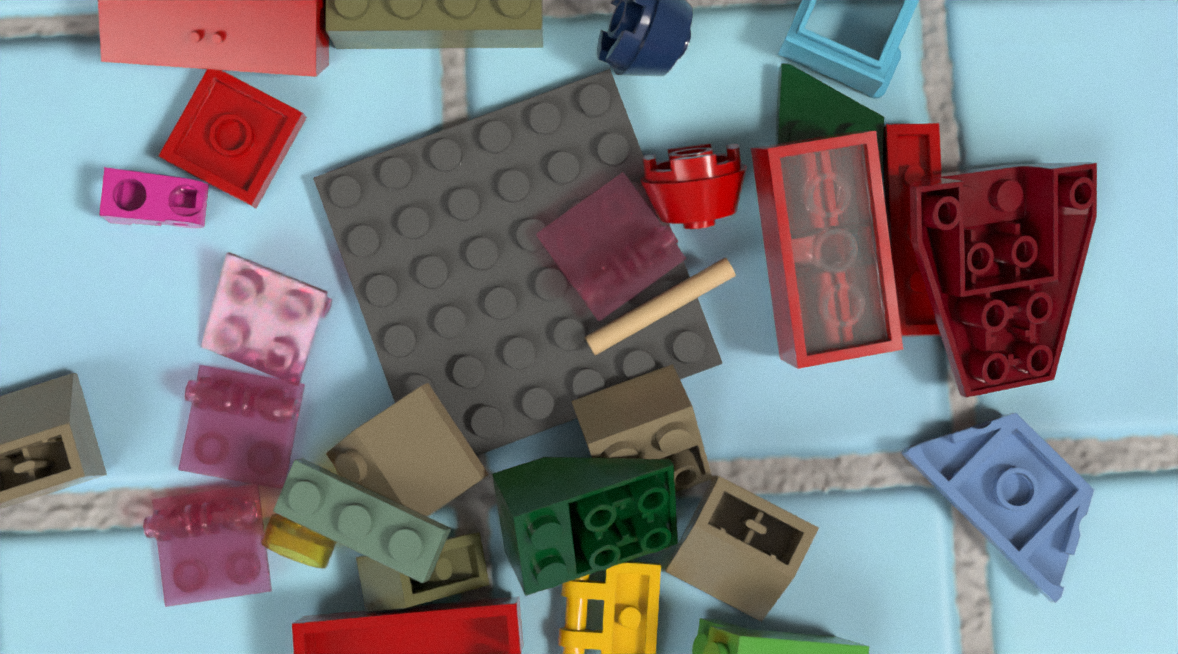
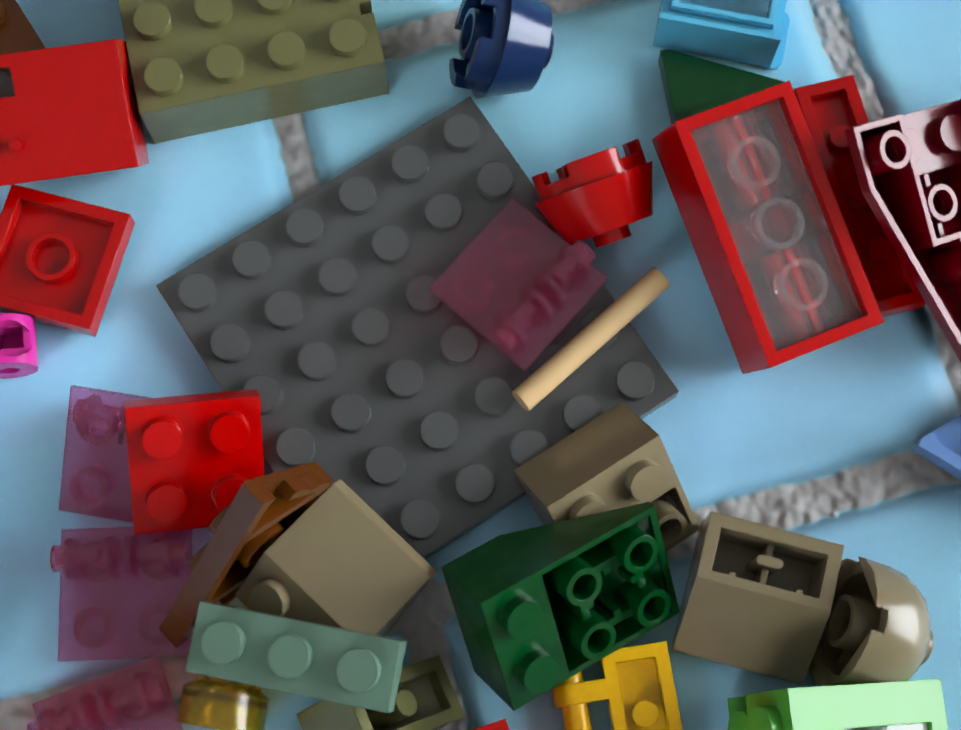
camera: 10 degrees left, 10 degrees down
(316, 337) = (190, 456): none -> red plate
(339, 415) = (240, 537): none -> reddish brown wing
(827, 596) = (874, 628): none -> dark tan cylinder

